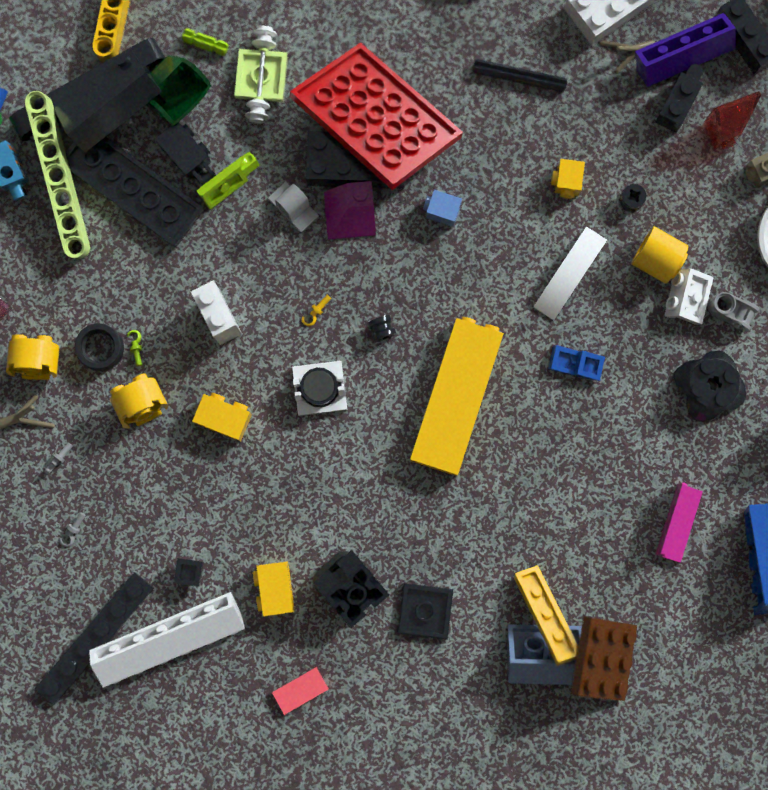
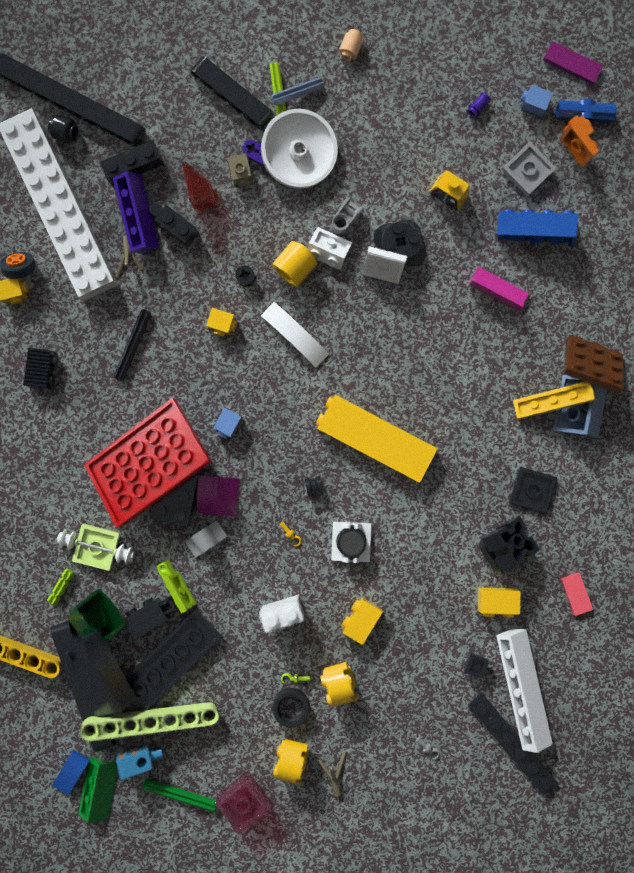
camera: 80 degrees left, 5 degrees up
(58, 458) = (371, 751): light grey hand -> none
(576, 363) = (365, 343): blue slope -> none
(680, 367) = (384, 265): none -> white plate

